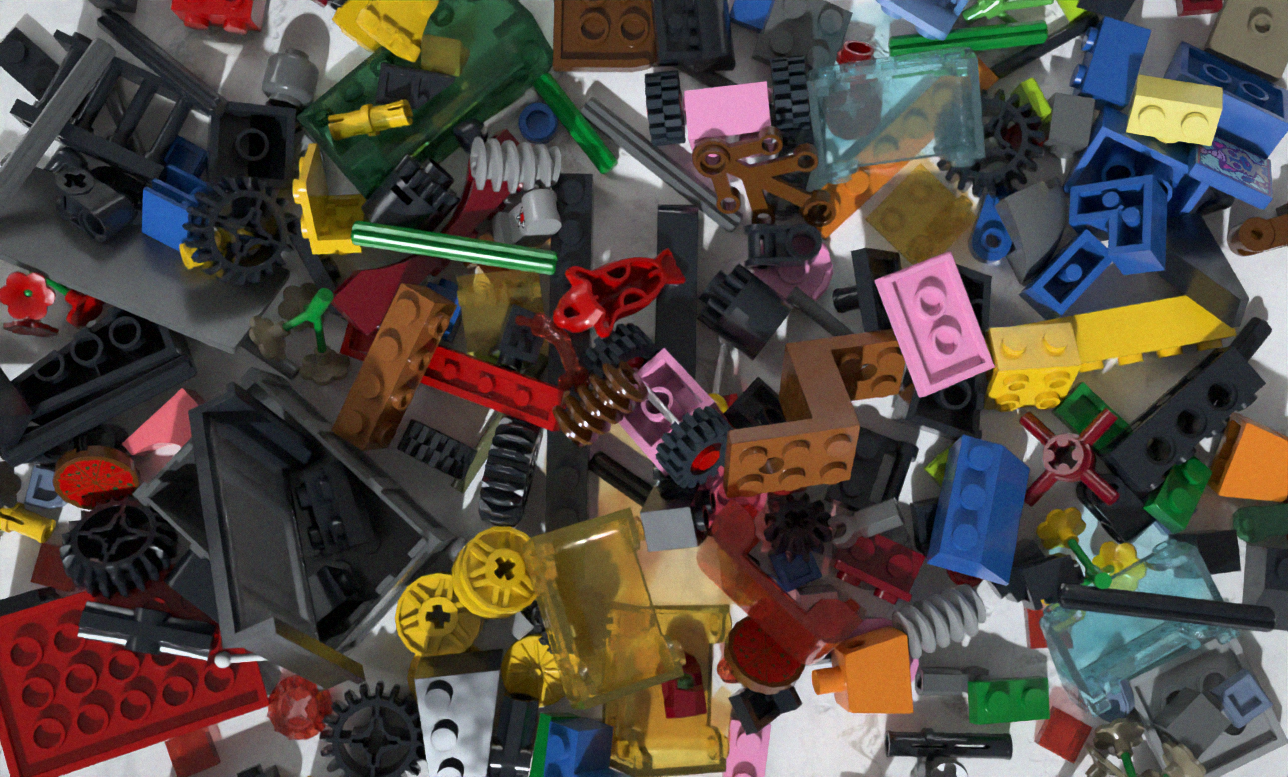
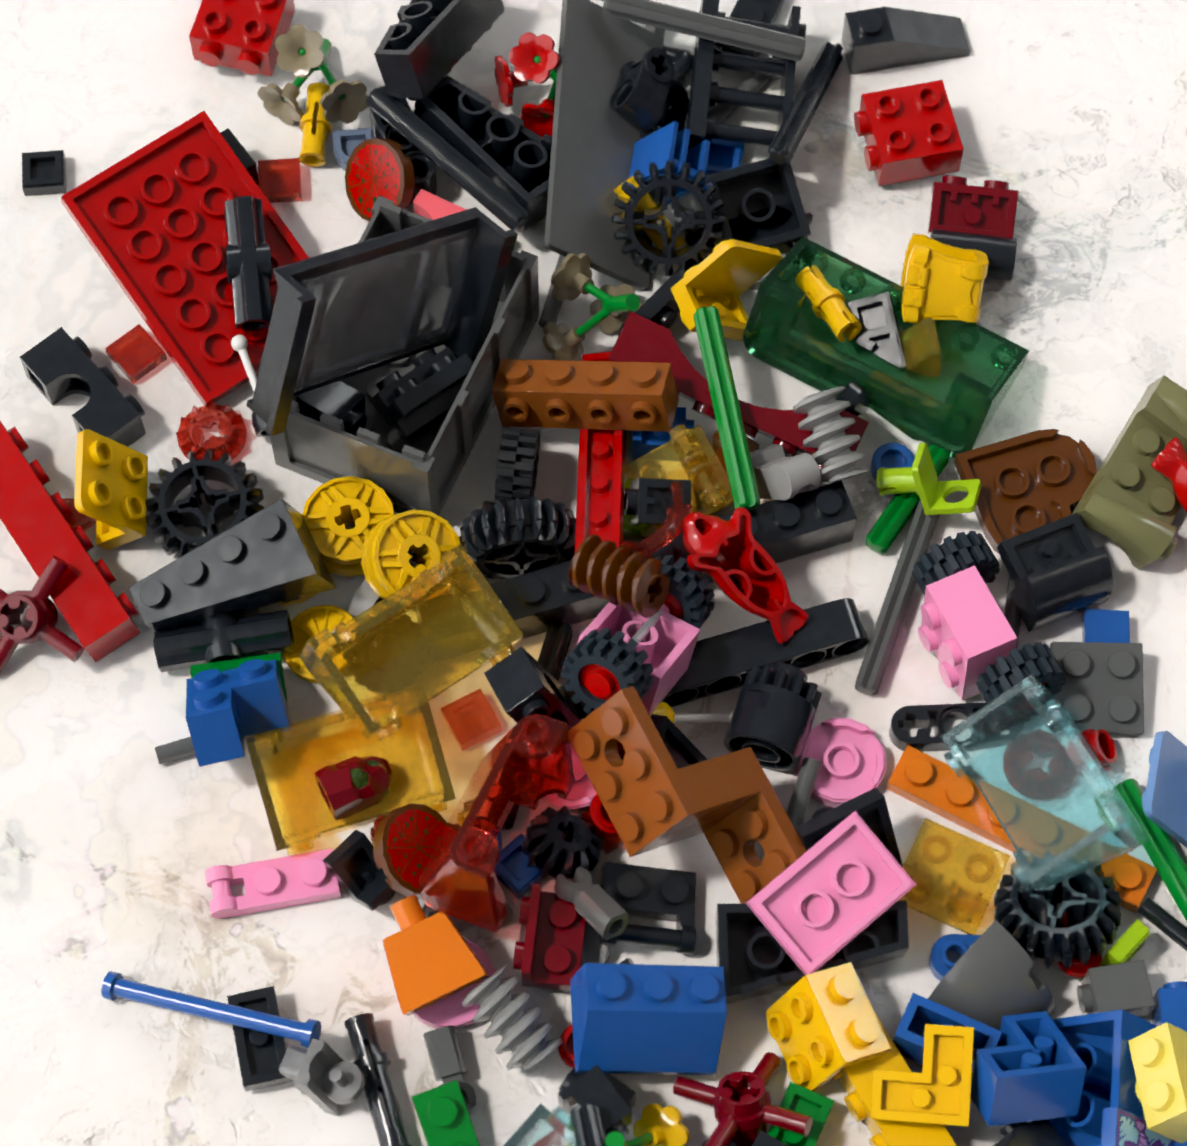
camera: 70 degrees right, 20 degrees down
(116, 539) = (316, 211): black gear -> none
(290, 79) = (839, 222): dark grey head -> none
(413, 196) = (766, 363): black gear -> none
(579, 100) = (923, 481): none -> lime bracket
(655, 565) = (471, 719): none -> clear red tile
(762, 176) = (917, 625): reddish brown plant -> none
(778, 246) = (855, 724): black piece -> none
(1123, 301) = (938, 1092): none -> yellow plate

